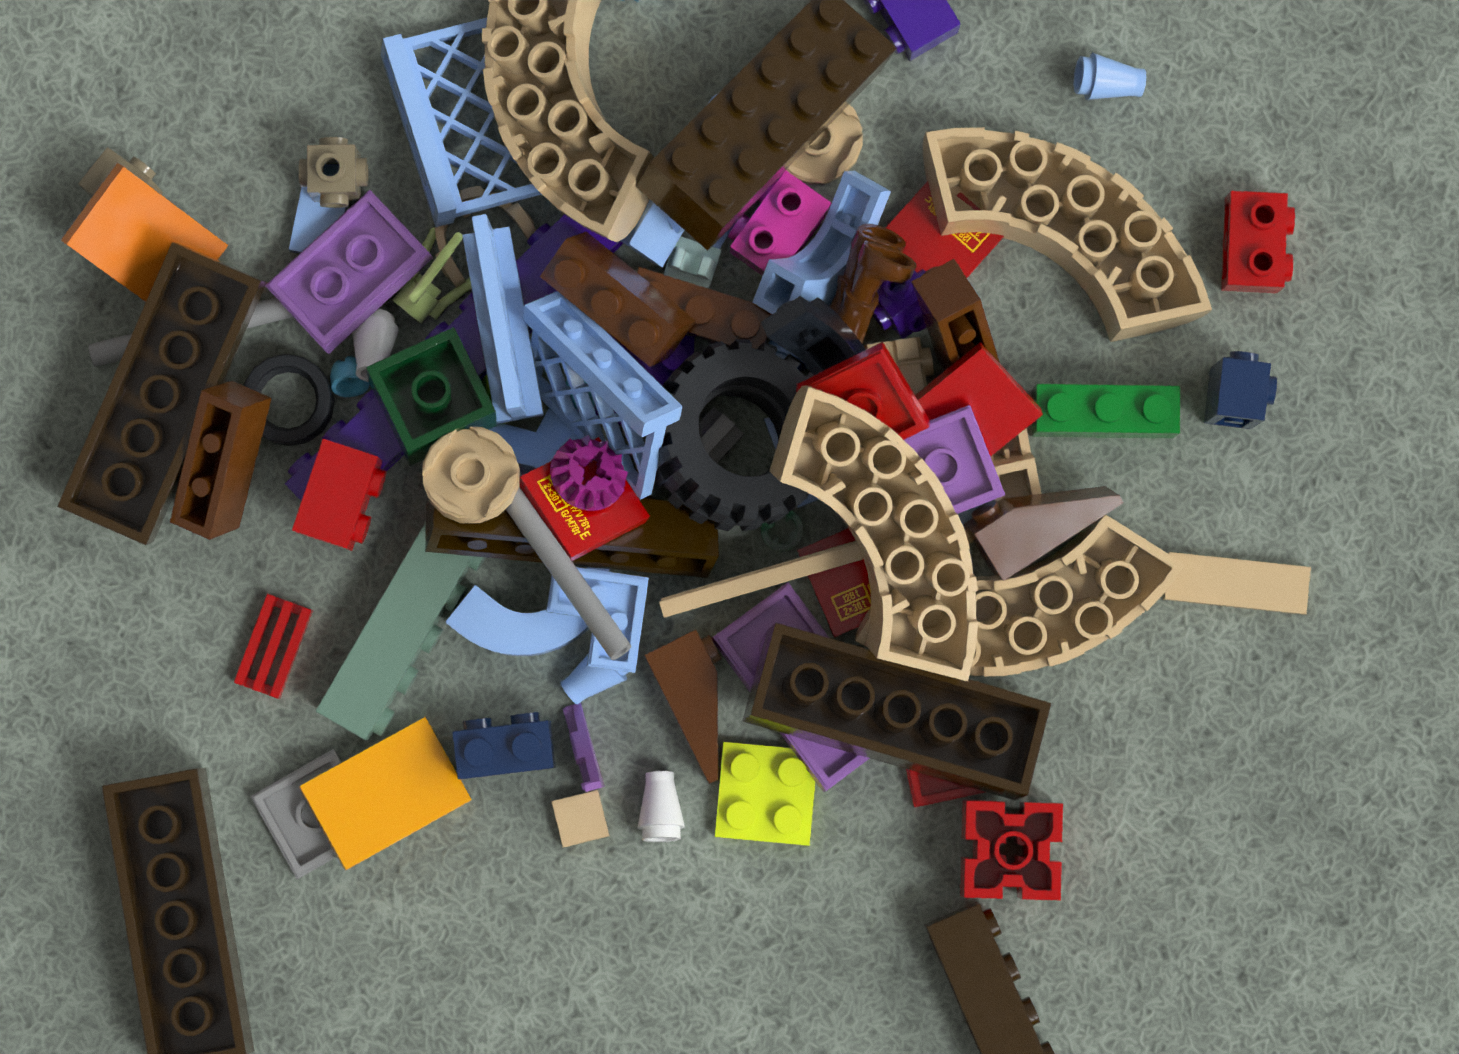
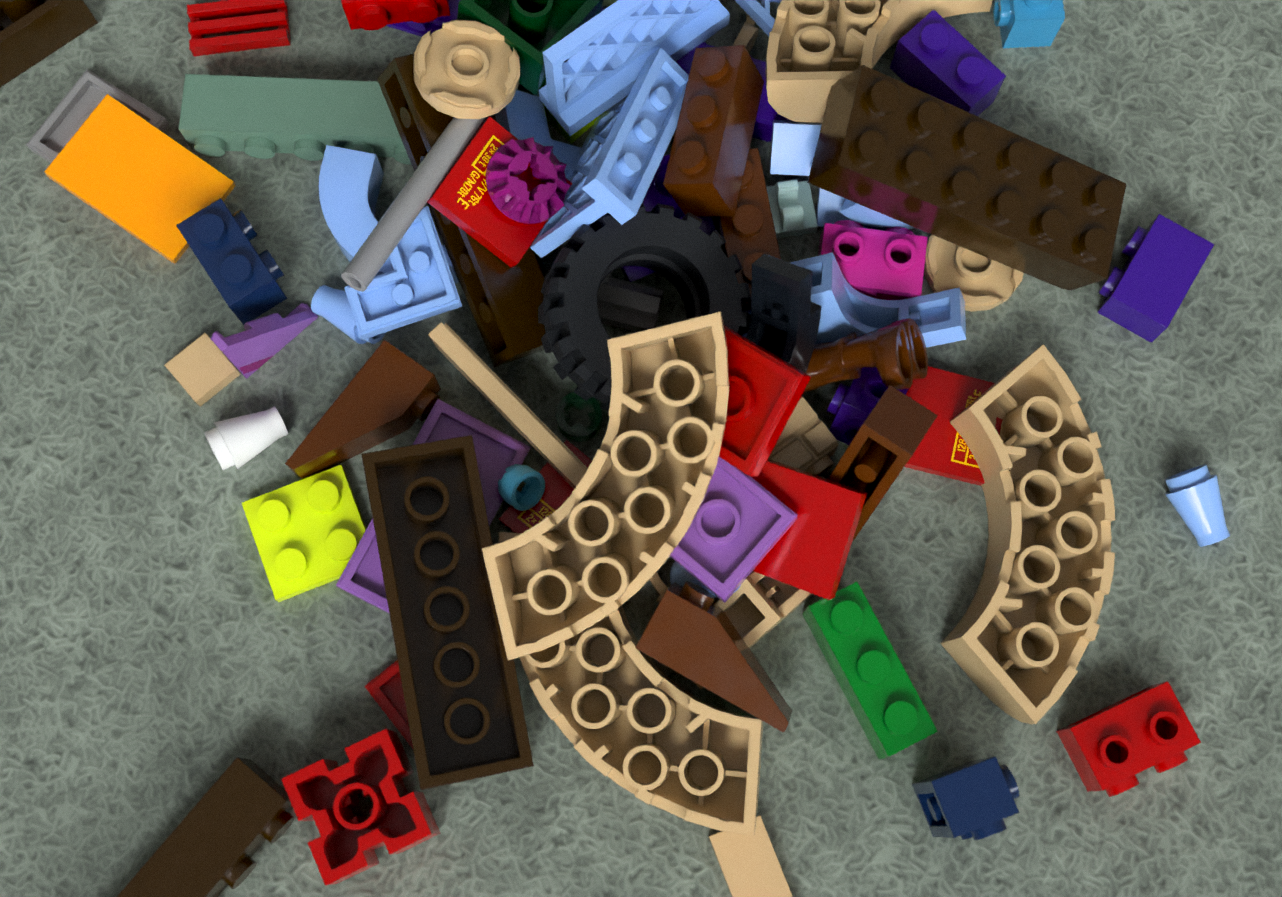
camera: 65 degrees right, 10 degrees down
(643, 67) = (946, 65): none -> dark purple brick
(821, 605) = (530, 493): none -> medium azure hinge

